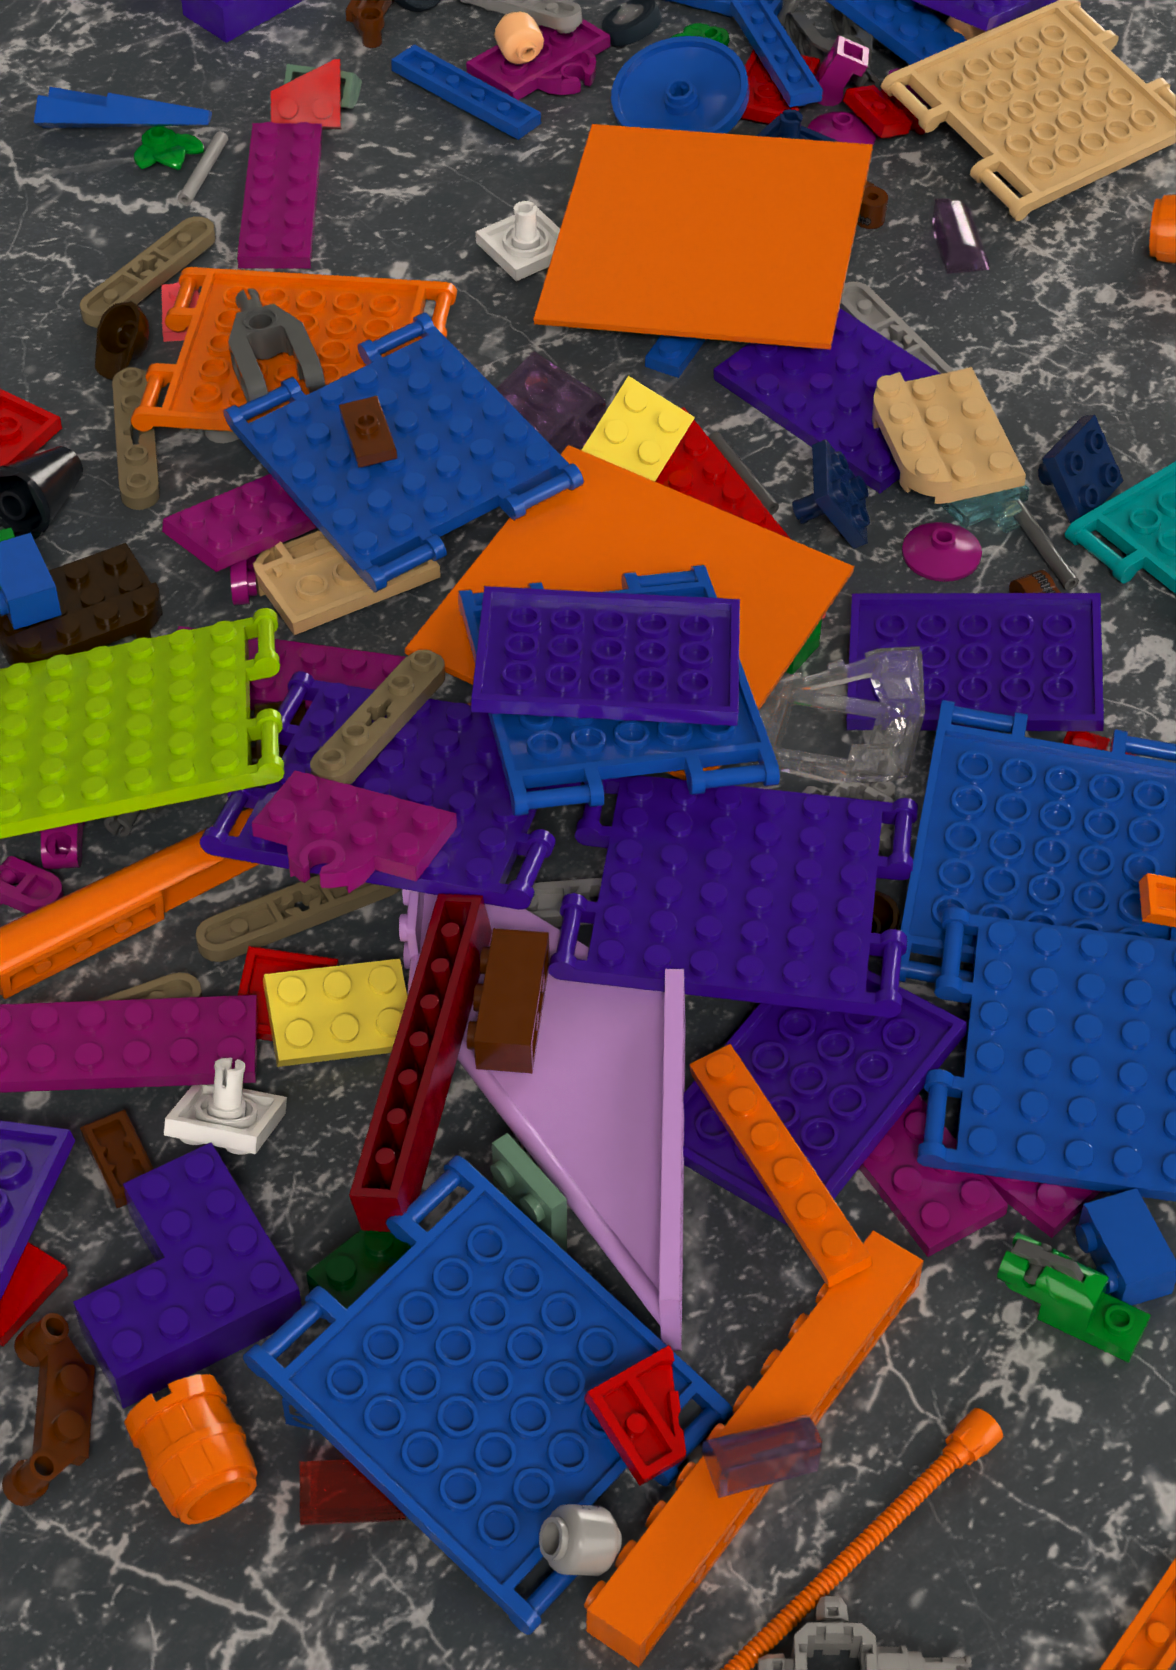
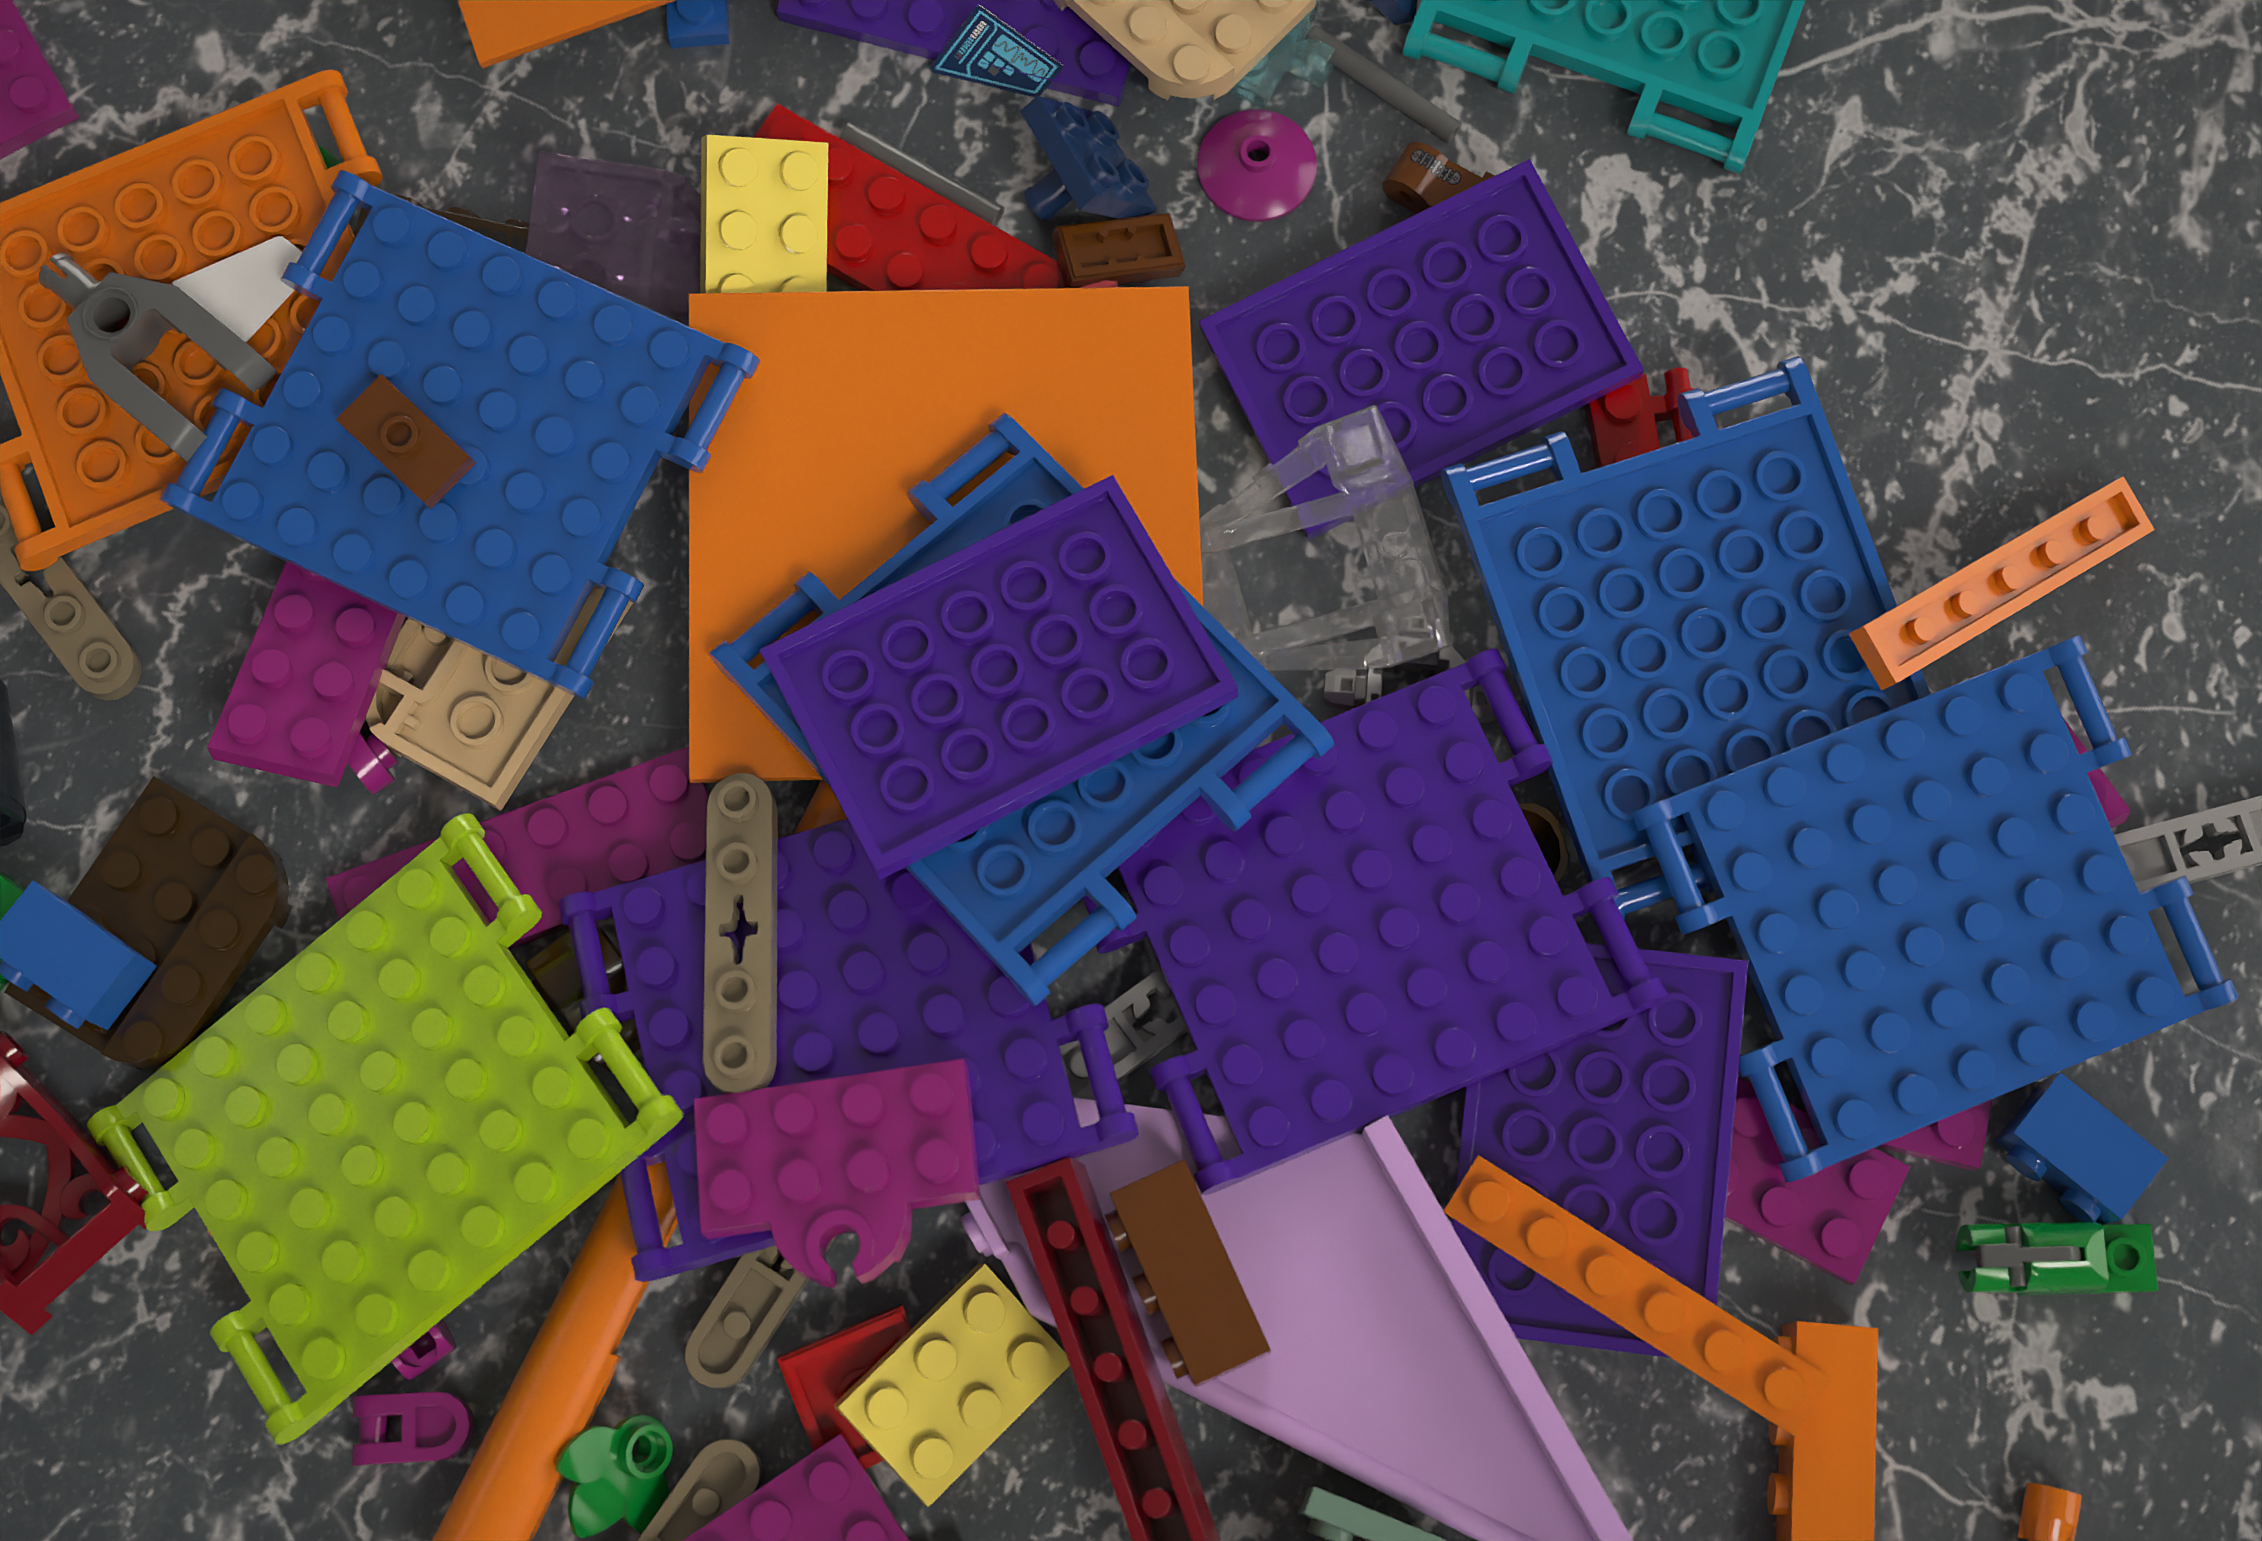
camera: 30 degrees left, 25 degrees up
(110, 960) = (612, 1481): none -> green plate
(337, 350) = (245, 286): none -> white sticker
(821, 424) = (994, 42): none -> dark blue sticker
(833, 544) = (1118, 250): none -> reddish brown plate

